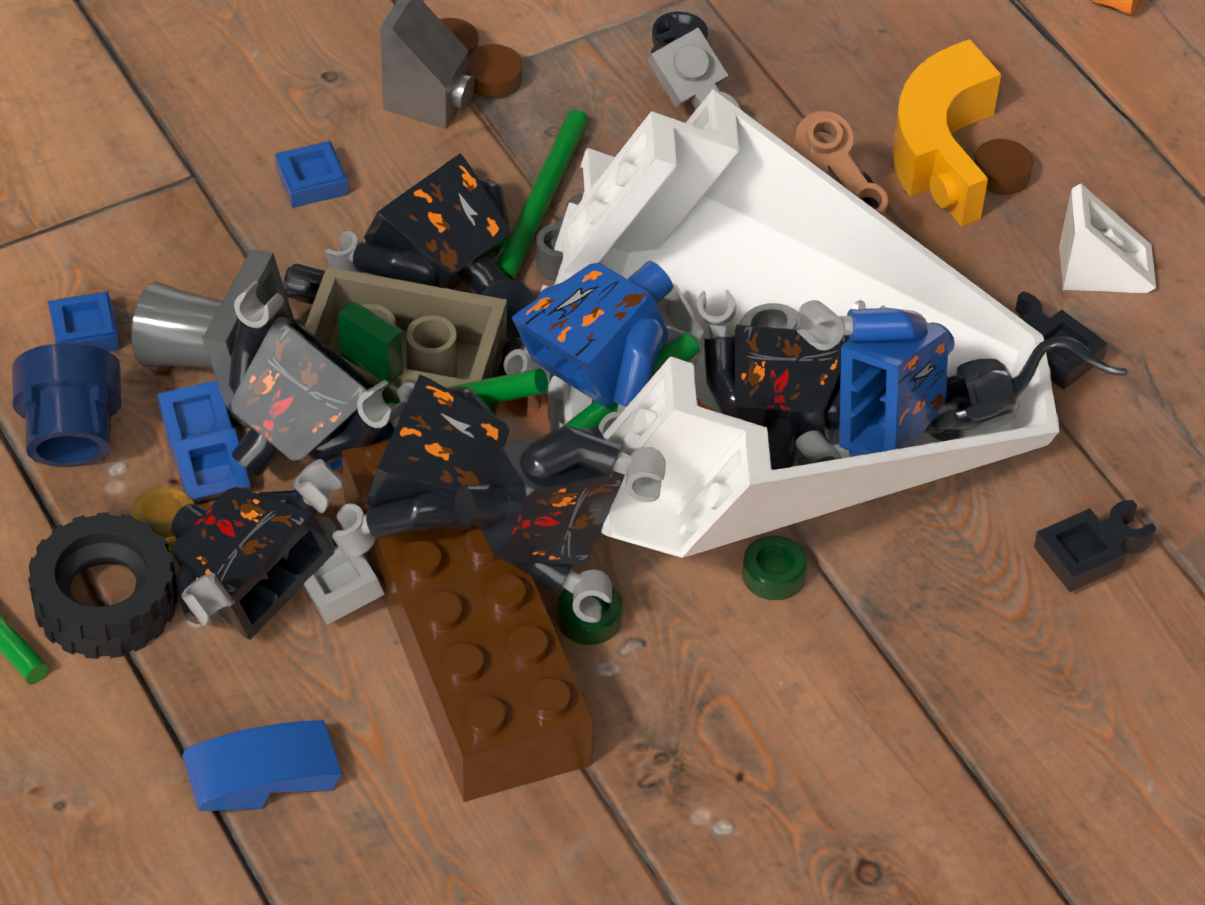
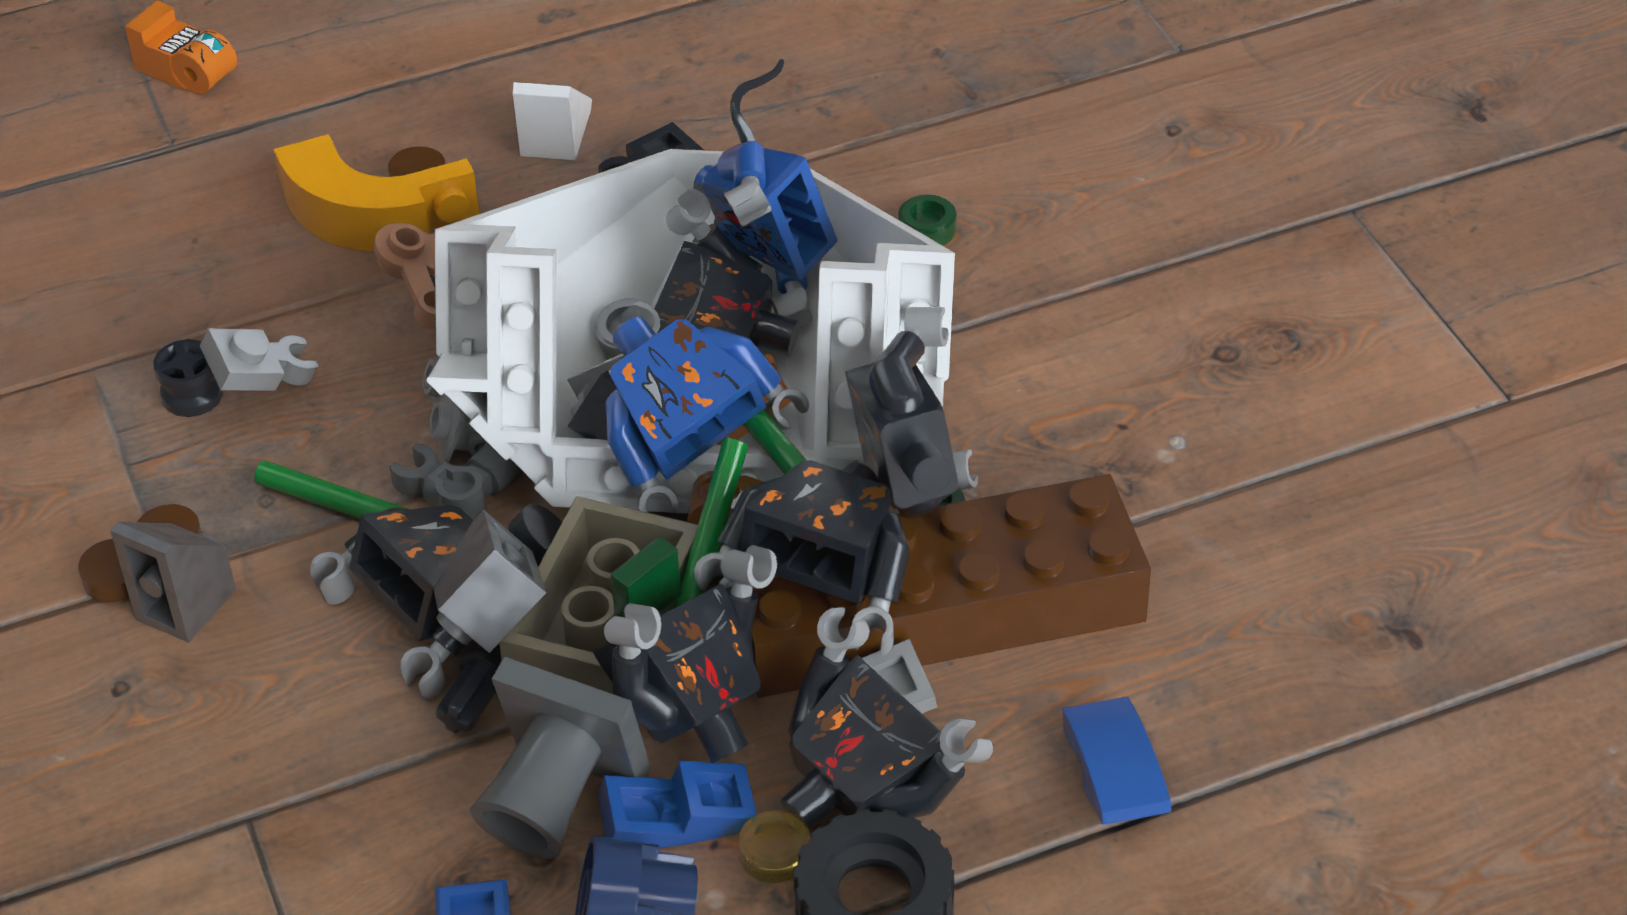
camera: 80 degrees left, 5 degrees down
(311, 174) = (283, 703): blue tile -> none
(389, 246) = (487, 584): none -> flat silver slope
(1020, 584) = (930, 216): none -> dark green tile
(1090, 549) = (896, 169): black plate -> none

